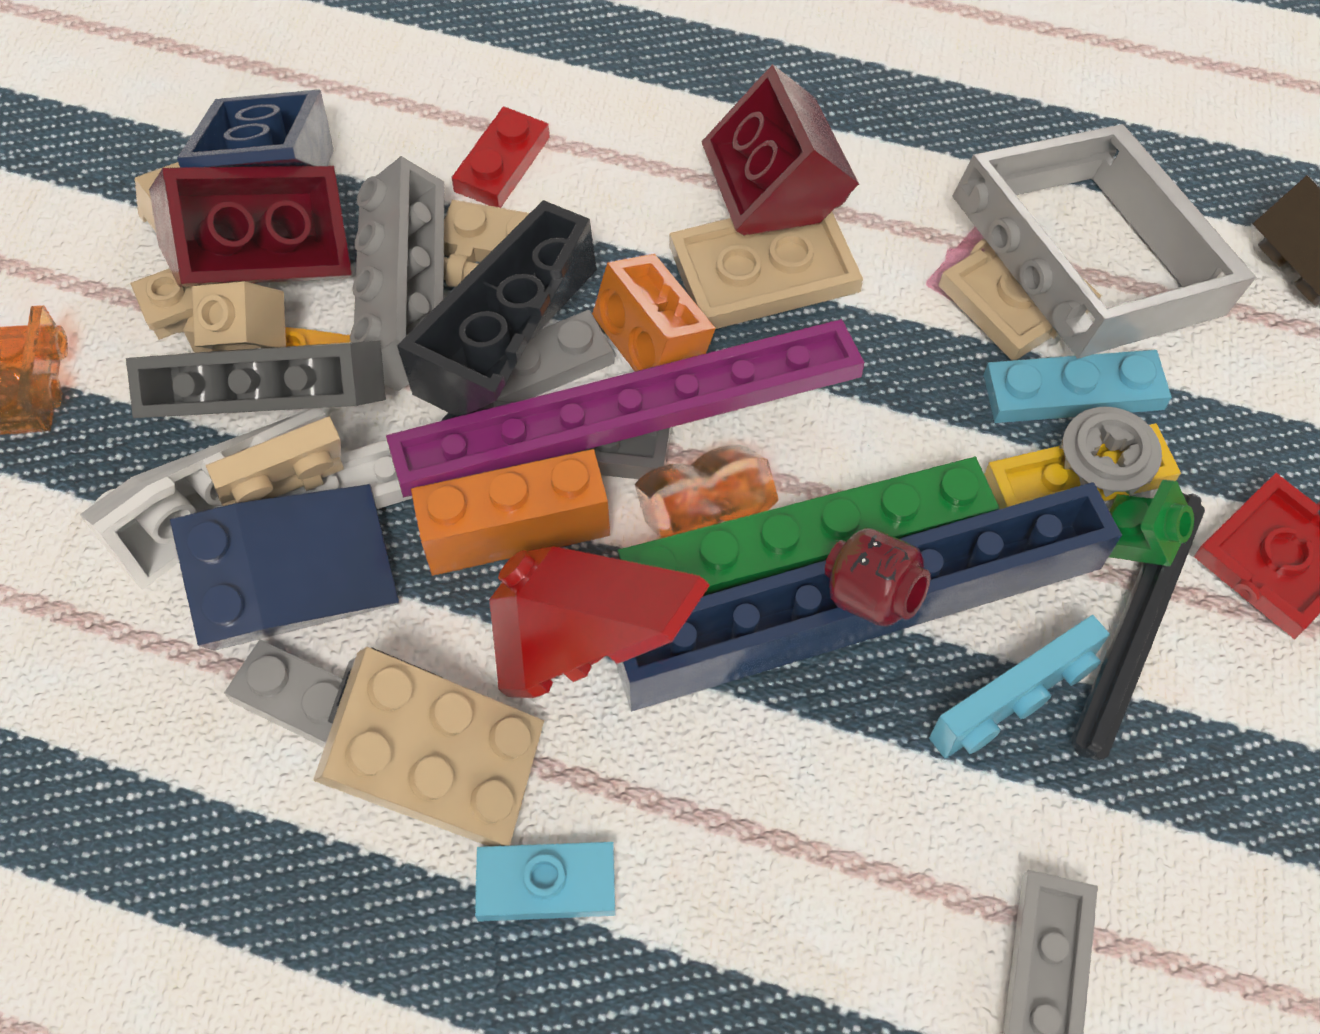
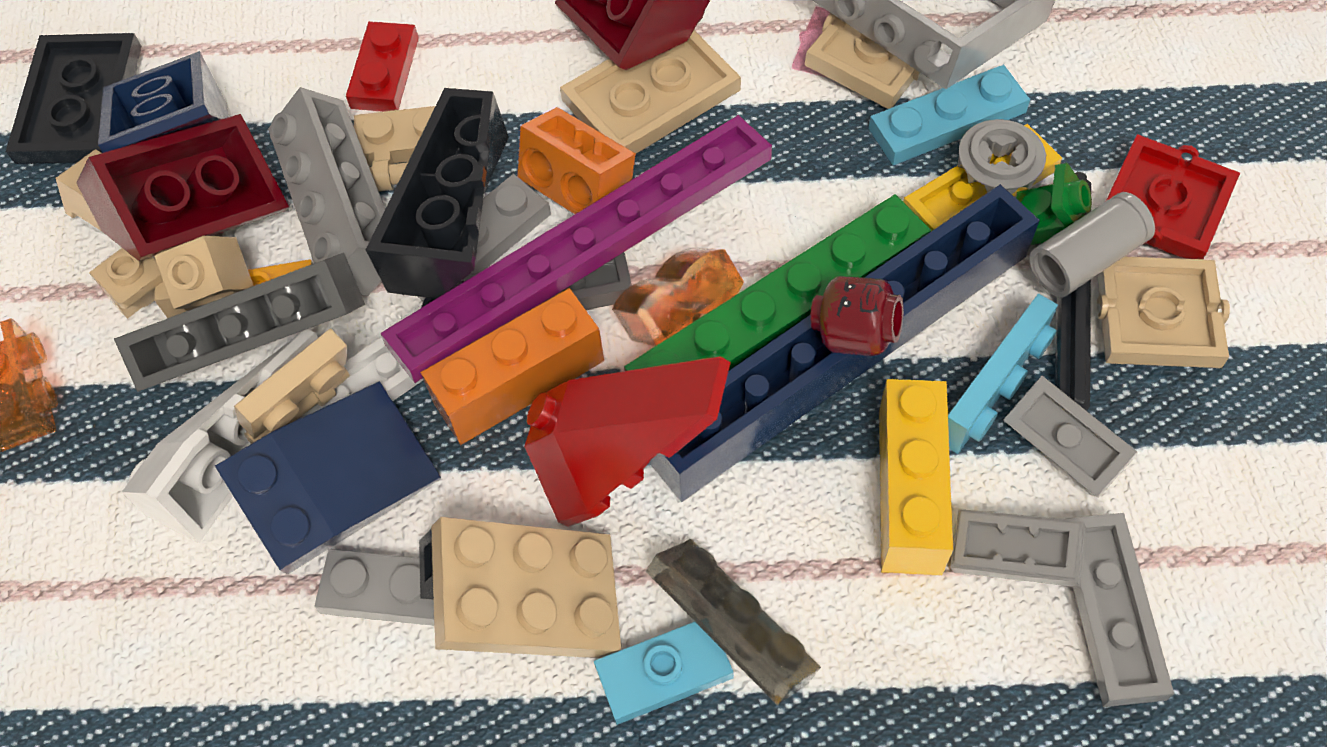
camera: 15 degrees left, 0 degrees up
(180, 90) = (64, 95): none -> black plate
(635, 856) = (733, 620): none -> clear smoke plate
(883, 769) = (915, 478): none -> yellow brick
(968, 884) = (1018, 547): none -> light grey plate
(1071, 783) = (1070, 437): none -> light grey plate
(1173, 579) = (1092, 244): none -> light grey pin
(1229, 678) = (1163, 313): none -> tan plate

